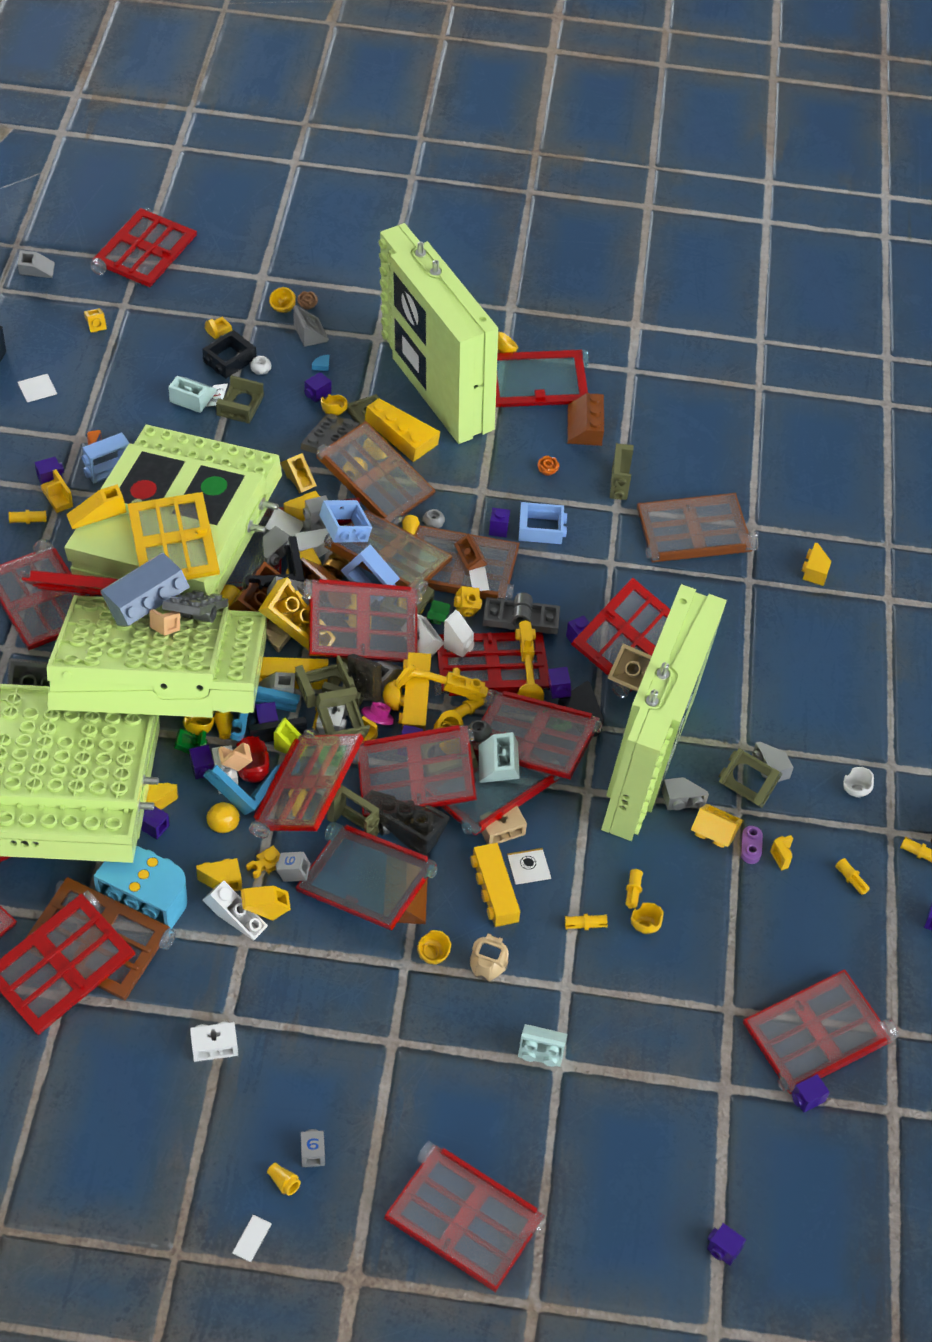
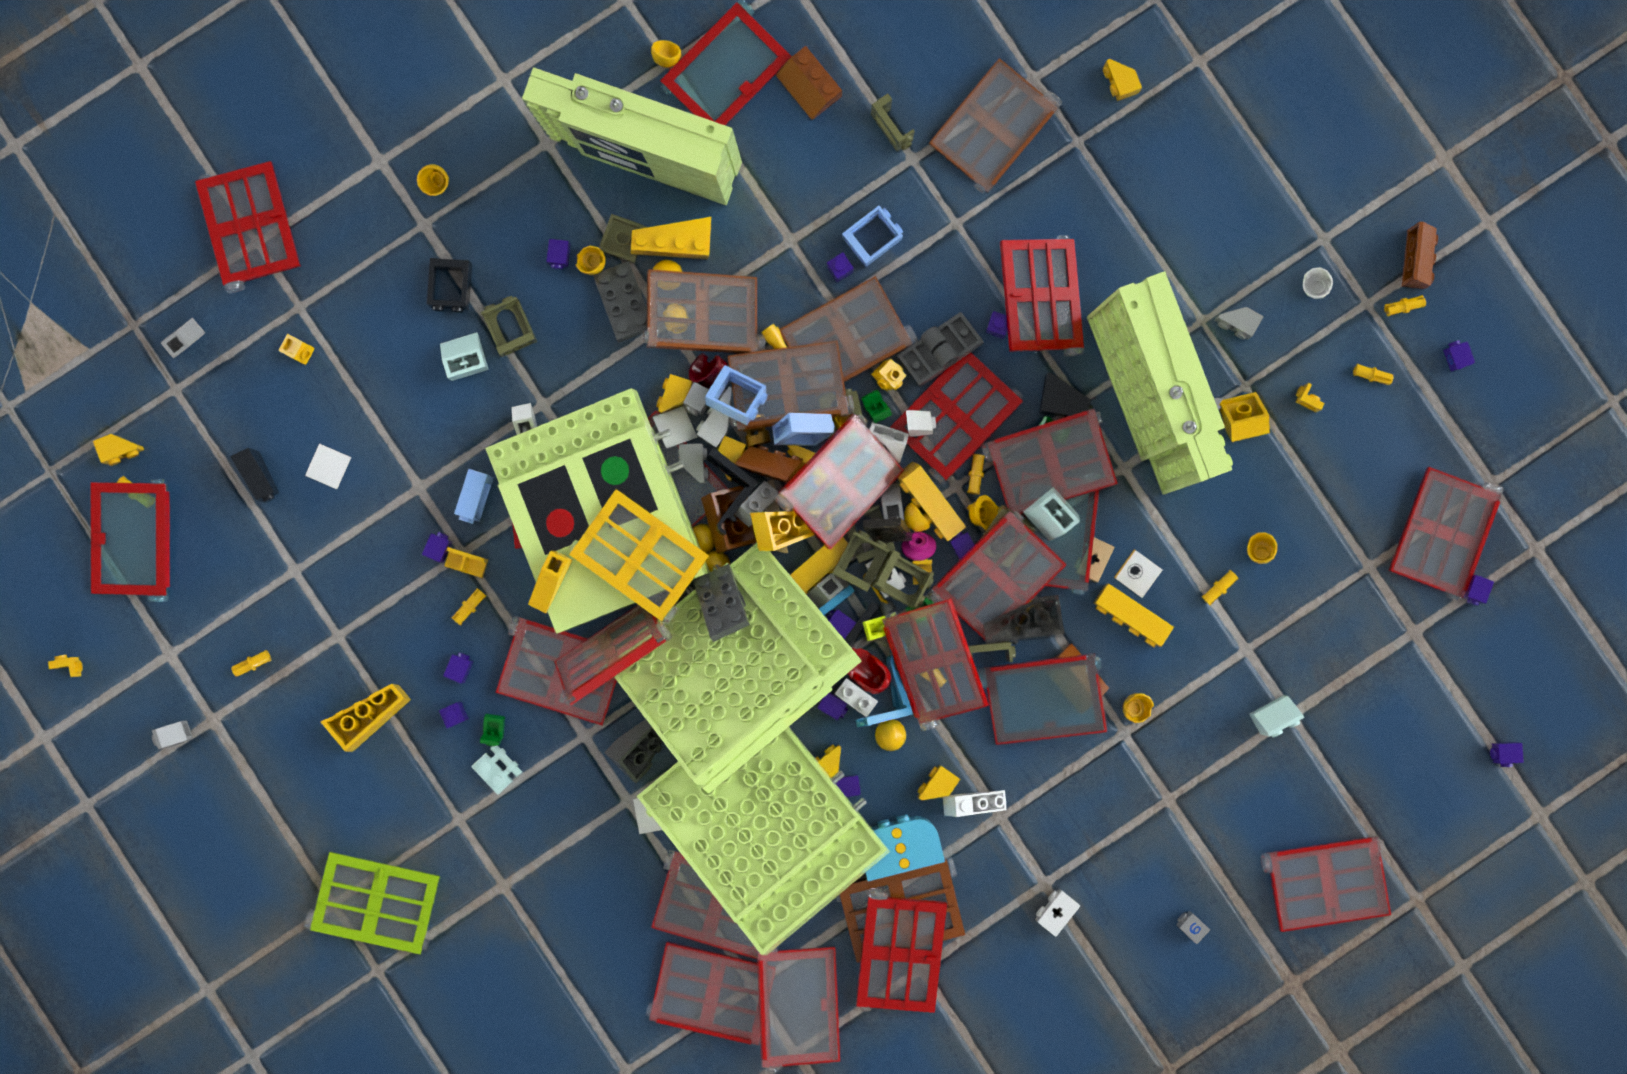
camera: 40 degrees left, 35 degrees up
(93, 436) = (439, 484): orange slope -> none
(144, 589) = (679, 633): sand blue slope -> none
(165, 623) = (720, 647): light nougat panel -> none
(217, 327) = (406, 259): yellow tile -> none
(221, 389) = (486, 339): white sticker -> none
(235, 758) = (864, 690): light nougat panel -> none
(252, 1238) = (1206, 1016): white sticker -> none
(260, 365) = (489, 274): white plate -> none
(265, 861) = (956, 739): yellow plate -> none
(266, 901) = (994, 781): yellow slope -> none
(284, 1179) = (1193, 963): yellow cone -> none
(293, 866) = (982, 733): light grey brick -> none
(298, 472) = (634, 363): yellow arch -> none
(307, 300) = (445, 152): medium nougat plate -> none
(308, 327) = (484, 188): light grey slope -> none
(321, 363) = (532, 219): dark azure tile -> none
(433, 518) = (776, 311): light grey plate -> none
(453, 682) = (955, 473): yellow piece -> none
(470, 553) = (848, 323): dark orange slope -> none
(479, 578) = (876, 343): white sticker -> none
(481, 730) = (1015, 499): dark grey plate -> none
(484, 965) = (1185, 691): tan helmet -> none
(526, 635) = (966, 372): yellow piece -> none
(548, 465) = (821, 158): orange plate -> none
(559, 682) = (1034, 399): dark purple brick -> none
(629, 667) = (1078, 332): tan slope -> none
(634, 888) = (1229, 528): yellow axle -> none
(742, 757) = (1256, 364): olive panel -> none
(751, 842) = (1278, 411): medium lavender plate -> none

